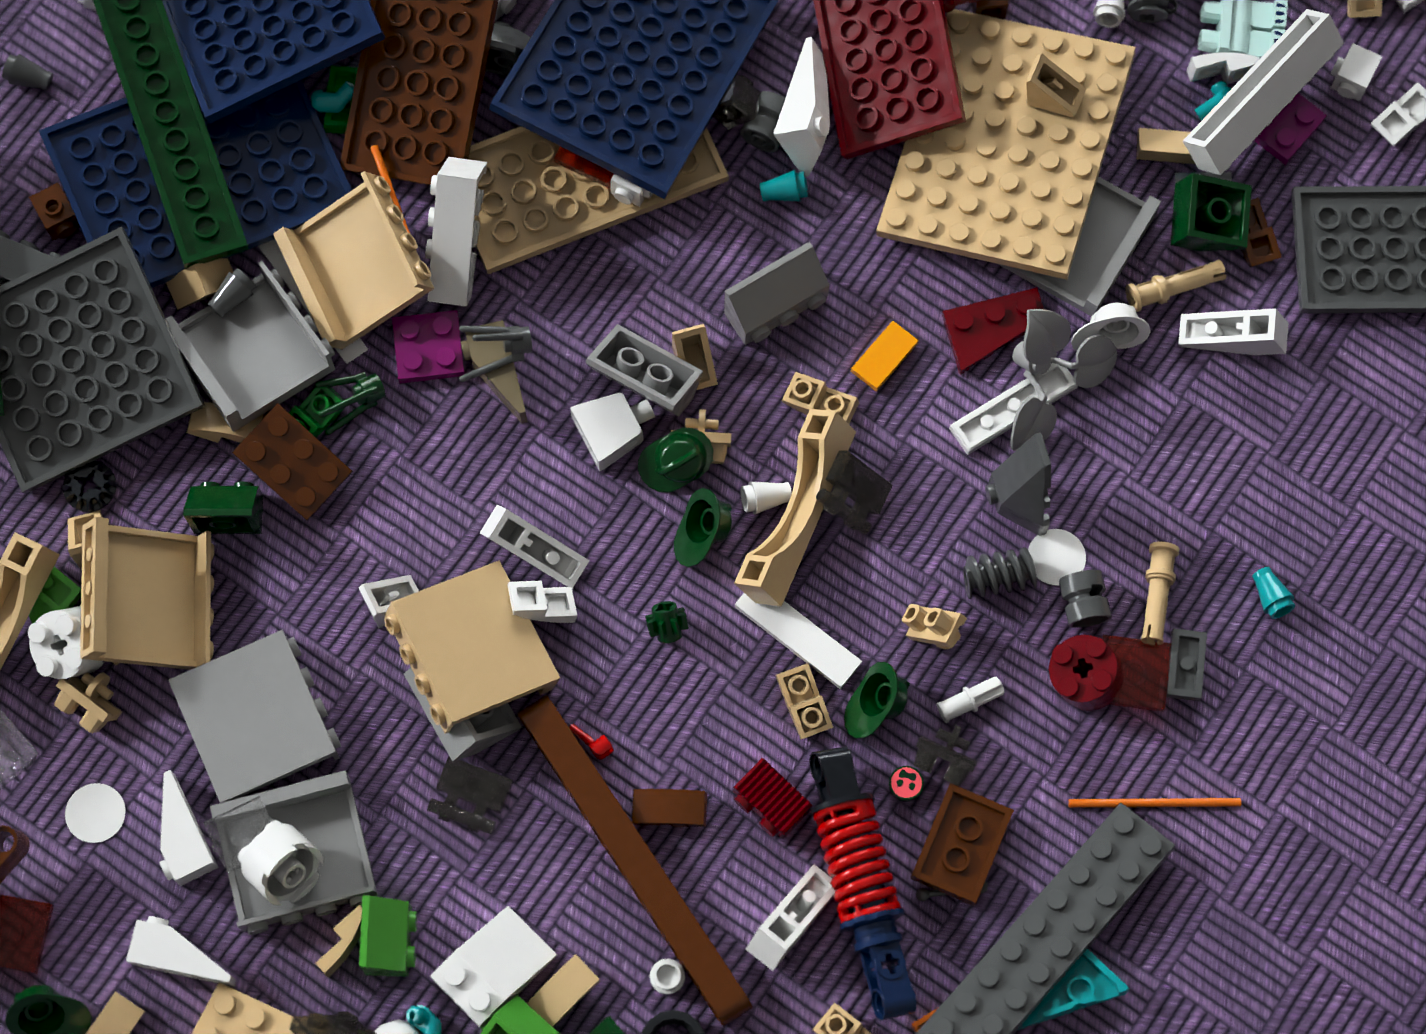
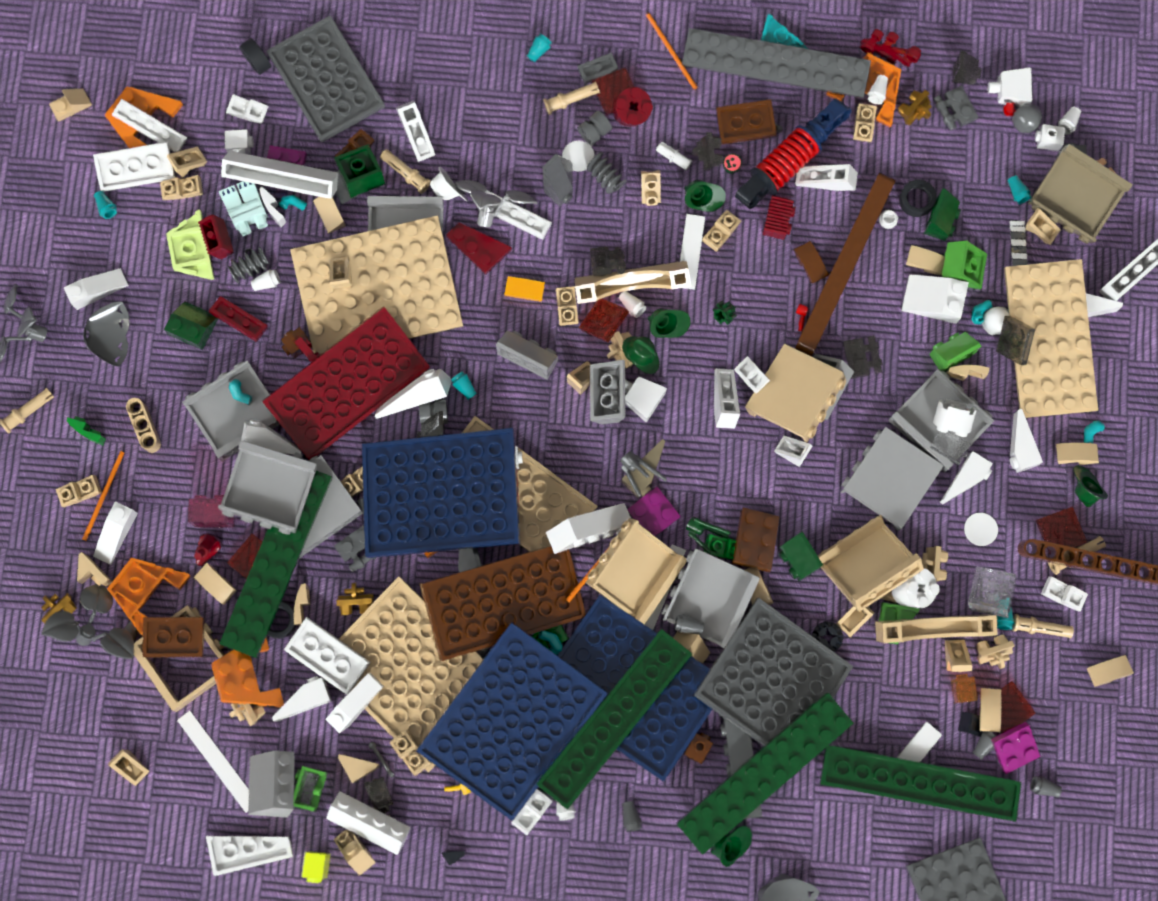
camera: 120 degrees left, 5 degrees up
(762, 435) = (603, 320): none -> clear red tile

